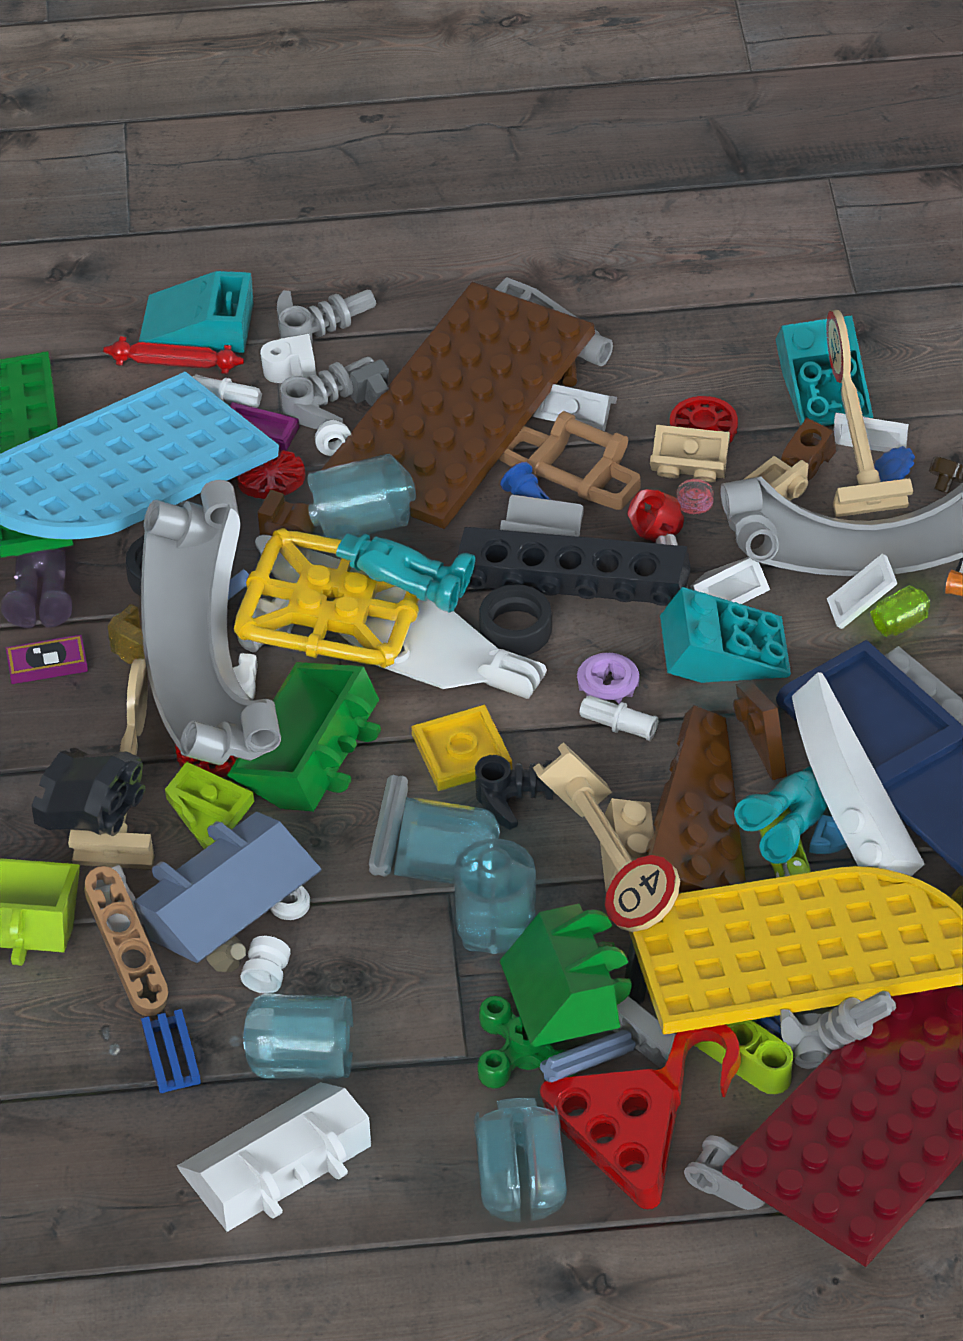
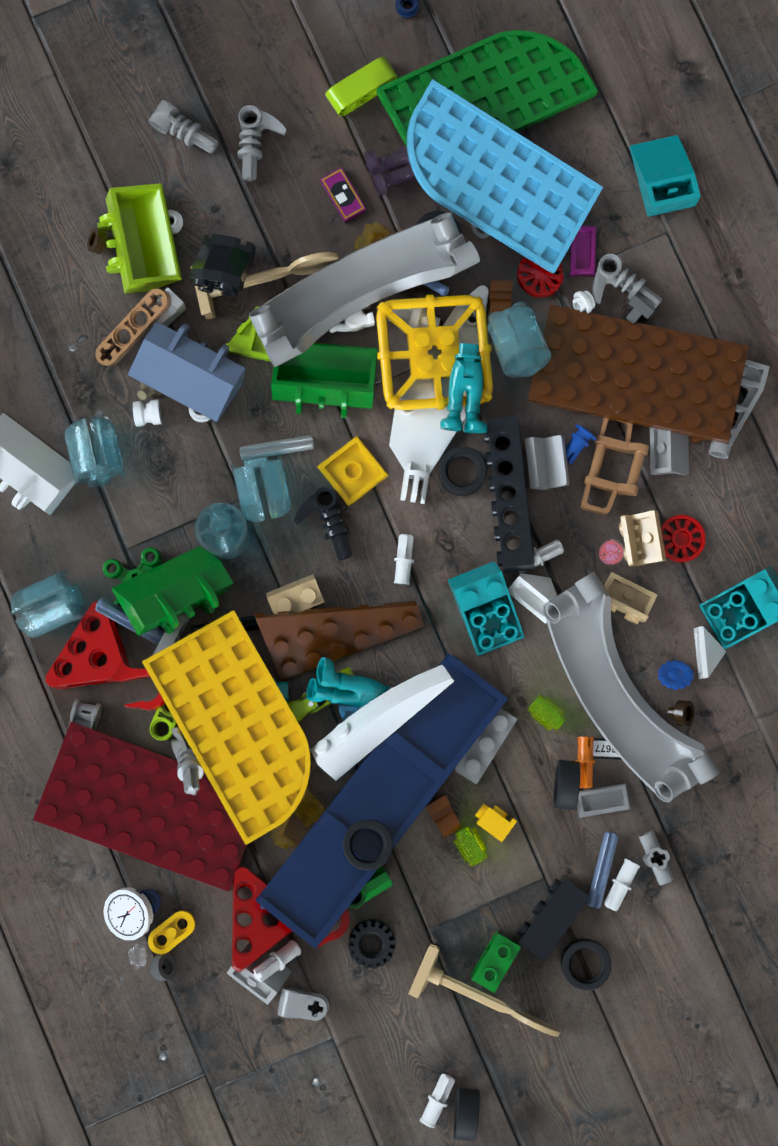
camera: 70 degrees right, 35 degrees up
(164, 1025) = (70, 373): blue tile -> none
(173, 355) = (627, 172): red wheel -> none
(231, 392) = (603, 218): white axle -> none
(288, 358) = (647, 248): white leg -> none
(325, 317) = (686, 253): light grey piece -> none
(597, 667) = (442, 534): lavender gear -> none
(643, 886) = (240, 618): tan piece -> none
(662, 517) = (576, 534): red piece -> none
(762, 725) = (413, 651): reddish brown wing -> none
(808, 448) = (670, 615): reddish brown leg -> none
(862, 591) = (550, 685): white slope -> none
(870, 493) = (644, 668): tan piece -> none

